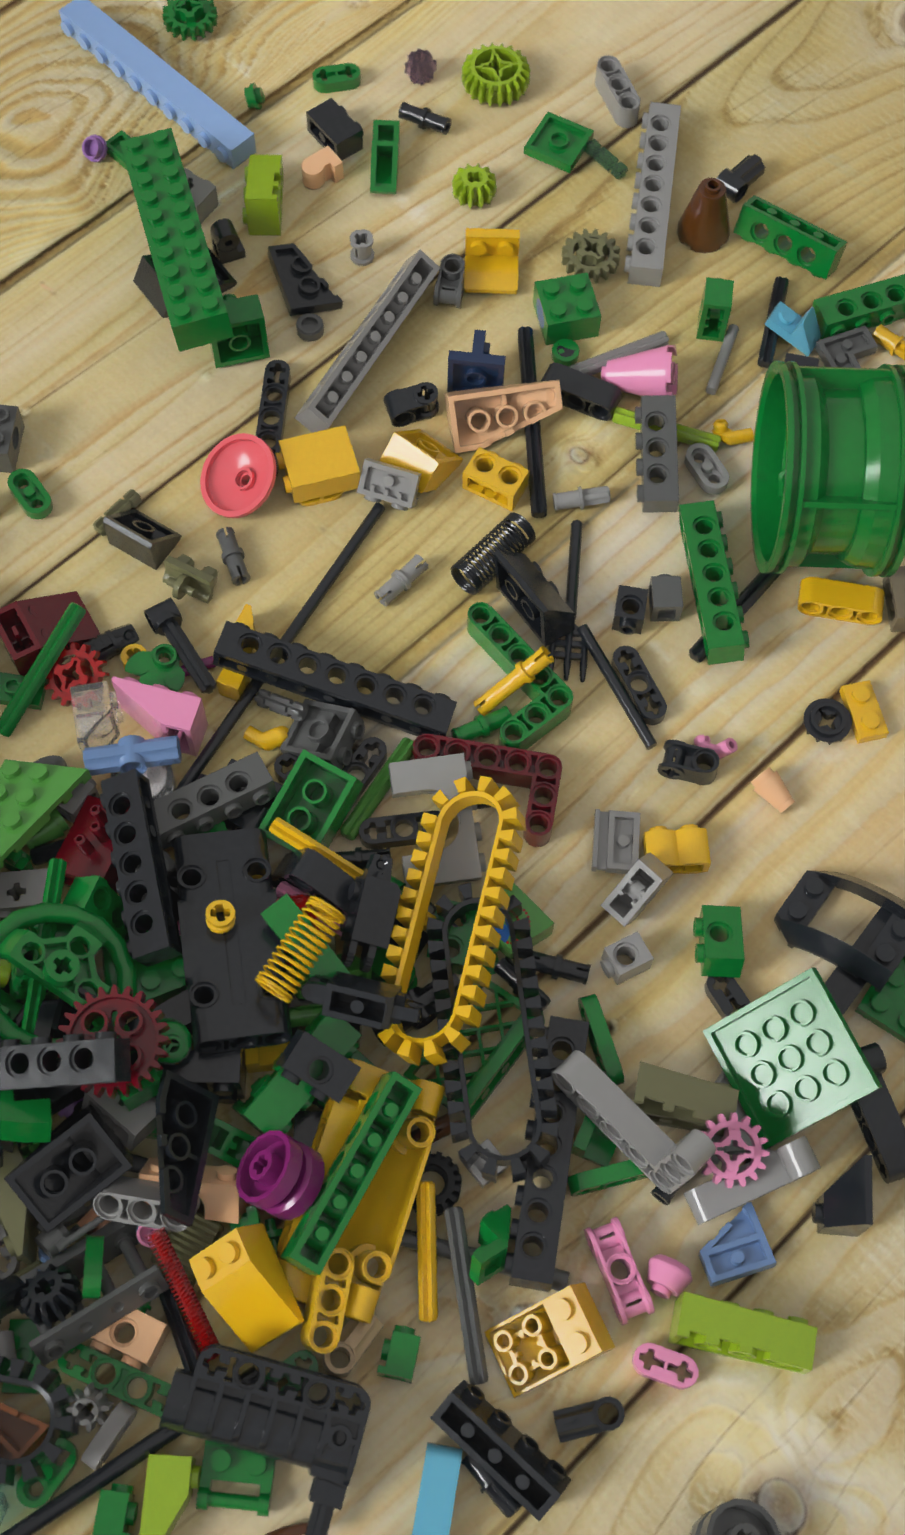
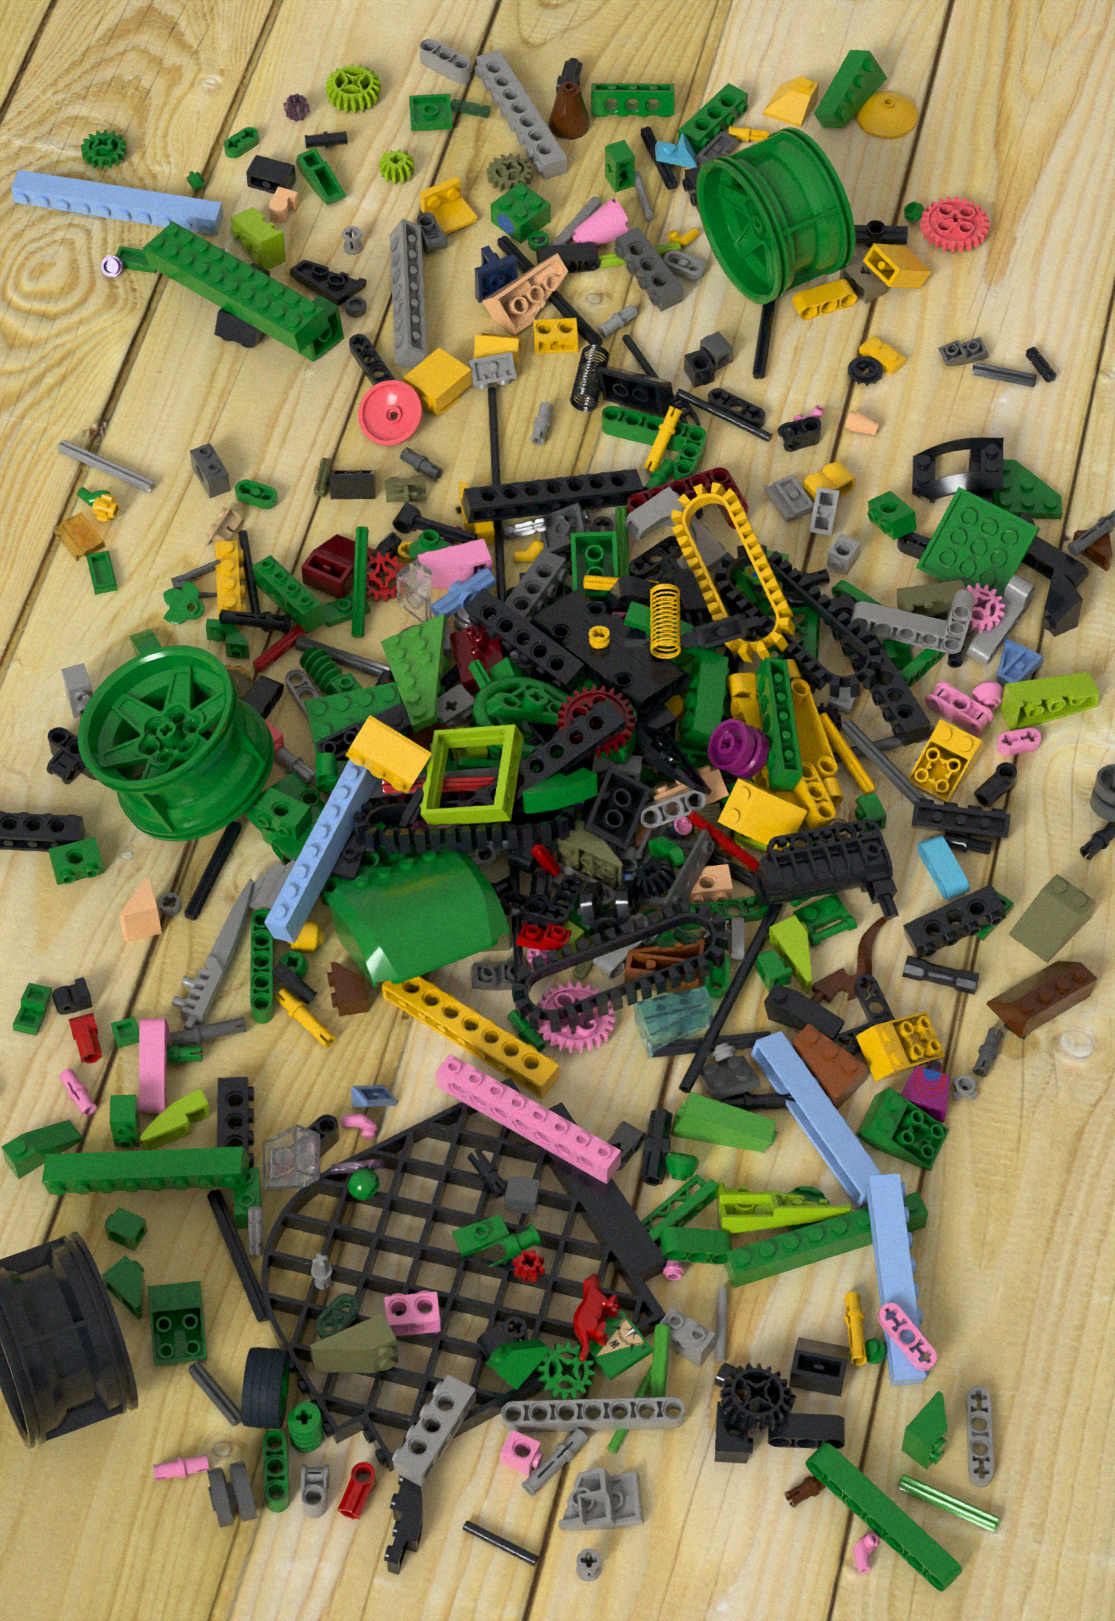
camera: 30 degrees left, 10 degrees down
(337, 1070) = (718, 680): black brick -> none
(409, 405) = (465, 318): black piece -> none
(493, 1237) = (880, 728): green slope -> none
(708, 562) = (739, 325): green brick -> none

